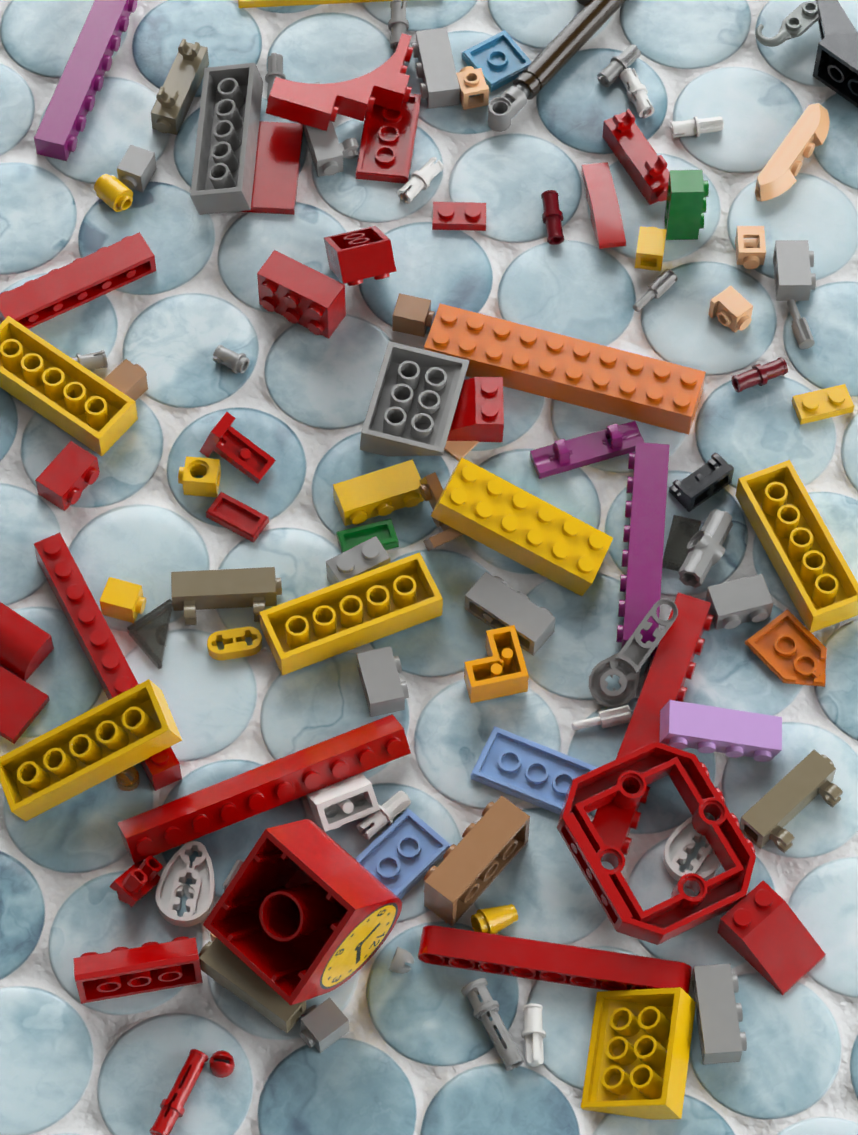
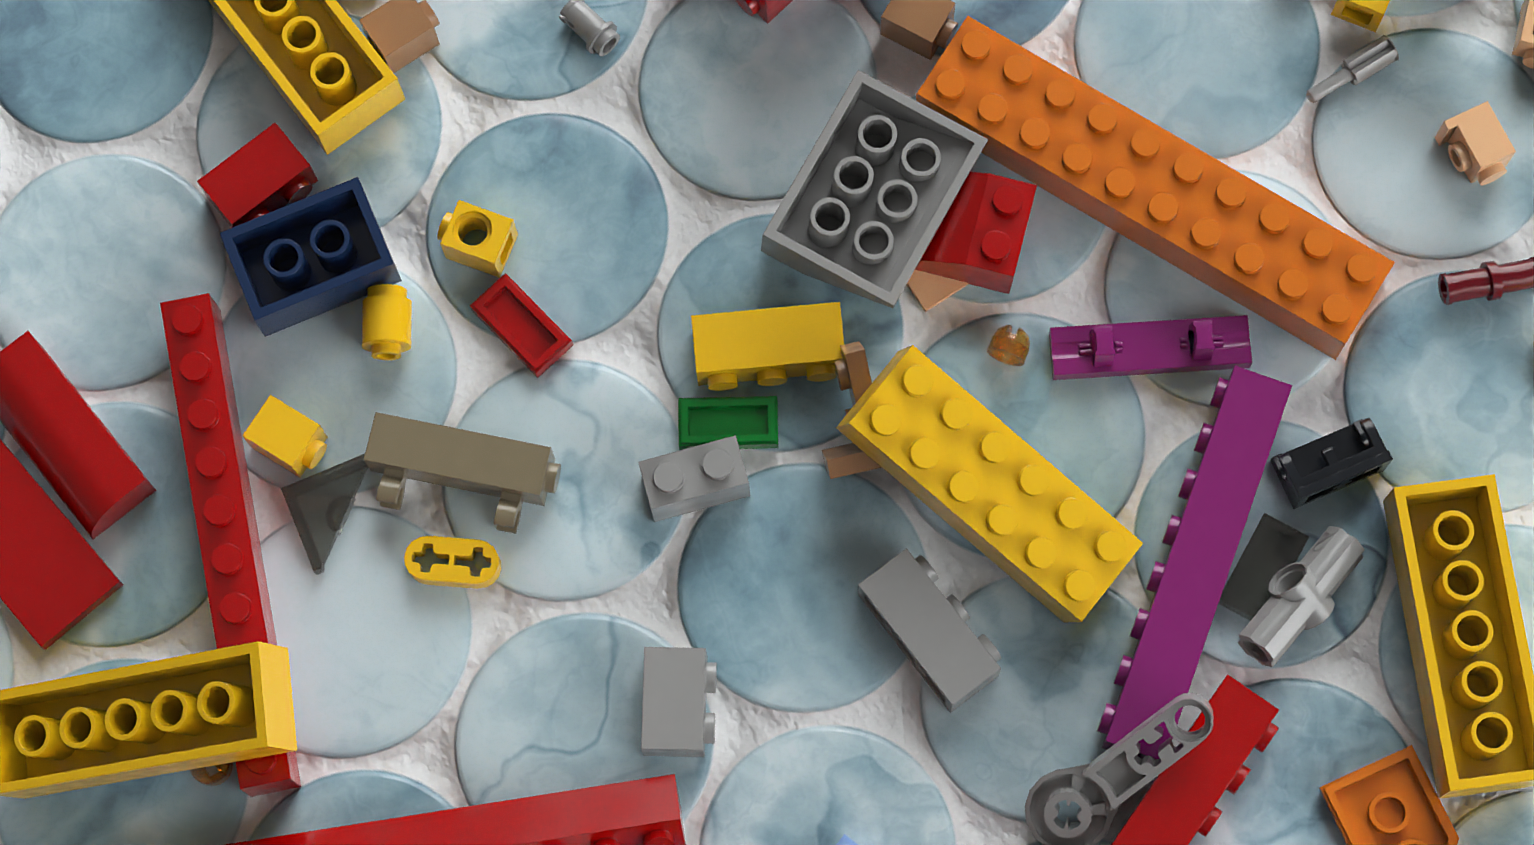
camera: 20 degrees right, 15 degrees up
(110, 504) = (310, 256): none -> dark blue brick
(161, 530) = (386, 321): none -> yellow brick
(237, 449) = (553, 208): red bracket -> none
(351, 613) = (656, 565): yellow brick -> none
(499, 673) = (885, 745): light orange brick -> none
(510, 465) = (1009, 347): none -> clear orange hinge
(739, 602) = (1331, 713): light grey brick -> none

